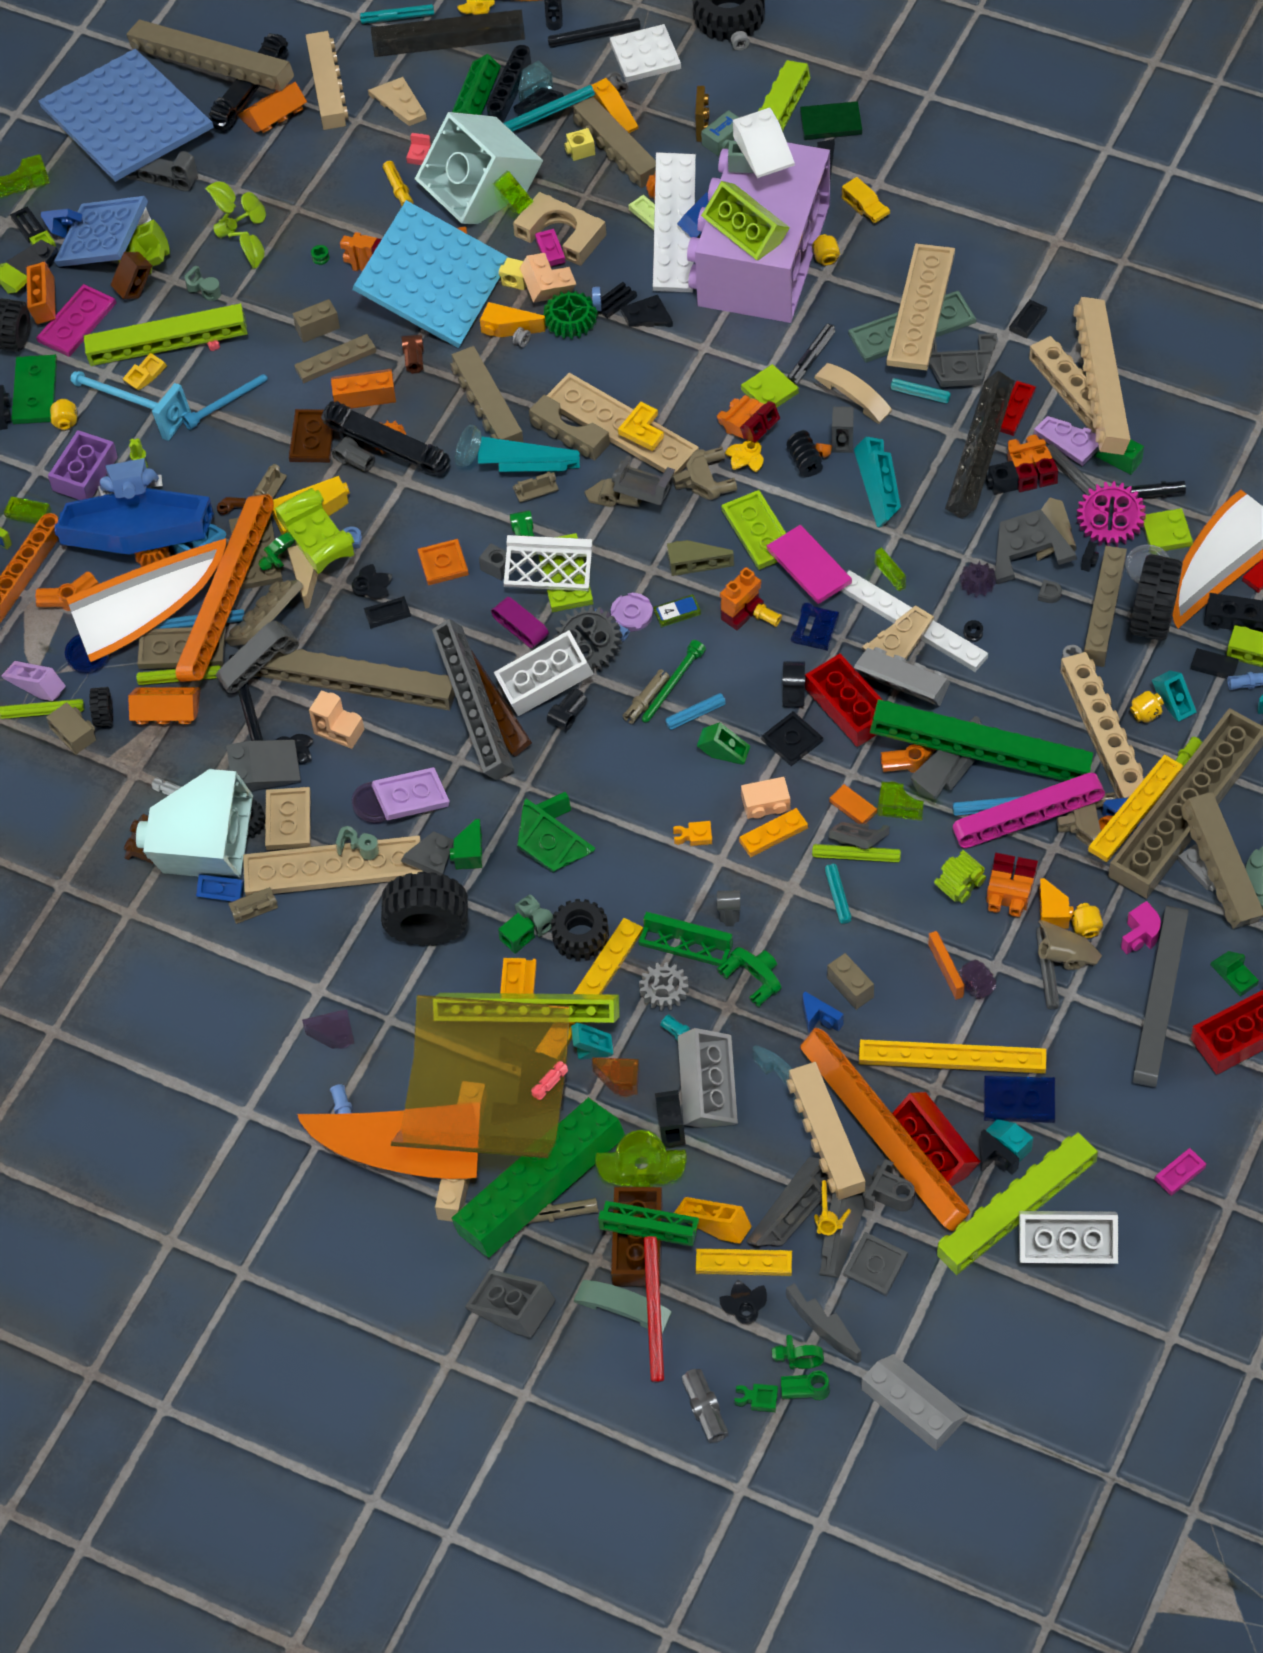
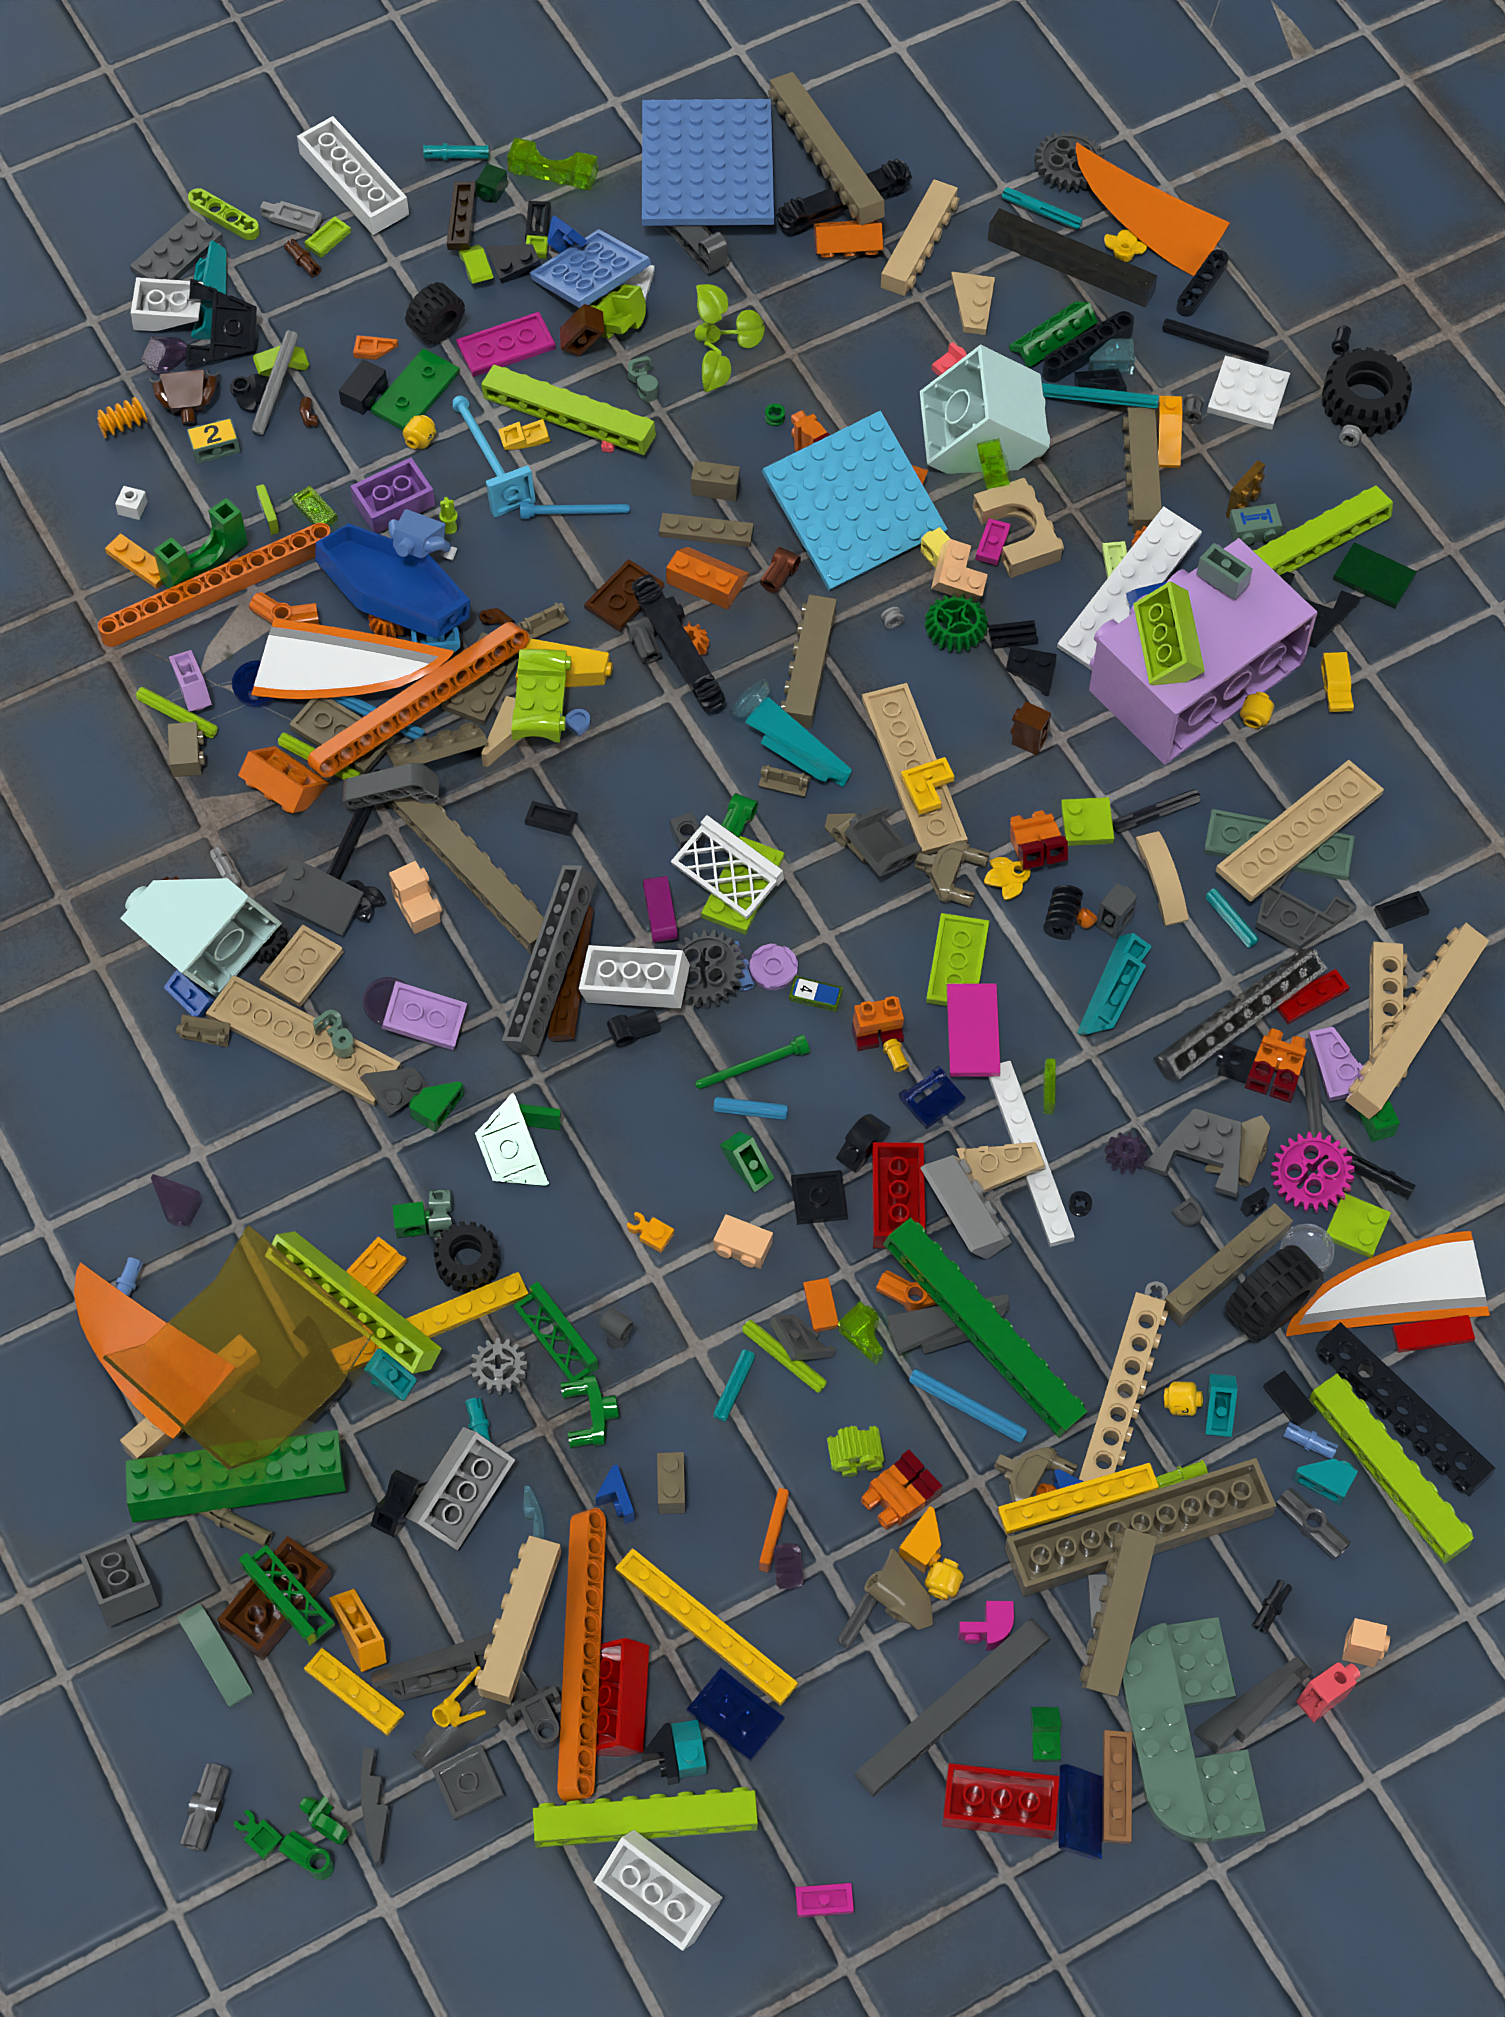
camera: 30 degrees right, 5 degrees up
(41, 293) = (489, 297): orange brick -> none
(101, 706) = (223, 745): black tyre -> none
(274, 549) = (486, 692): green piece -> none
(373, 583) = (563, 779): black plate -> none
(400, 189) = (900, 393): yellow pin -> none
(424, 908) = (334, 1141): black tyre -> none
(443, 562) = (641, 800): orange tile -> none
(504, 321) = (889, 591): light orange slope -> none
(549, 1080) = (310, 1390): coral axle -> none
(580, 144) = (1106, 451): light yellow brick -> none
(587, 439) = (870, 763): dark tan arch -> none
(596, 297) = (991, 622): medium blue tile -> none
(618, 1074) = (389, 1427): clear orange slope -> none
(641, 702) = (722, 1060): dark tan pin -> none
(641, 1148) = (312, 1516): clear neon green piece -> none
(653, 1309) = (228, 1681): red axle -> none
(683, 349) = (1030, 727): none -> reddish brown brick
(694, 557) = (870, 948): olive slope -> none
(743, 1300) = (323, 1728): black plate -> none
(762, 142) = (1240, 566): white slope -> none
(773, 832) = (724, 1281): light orange plate -> none
(913, 1401) = (394, 1943): light grey slope -> none
(1028, 810) = (976, 1427): dark pink beam -> none

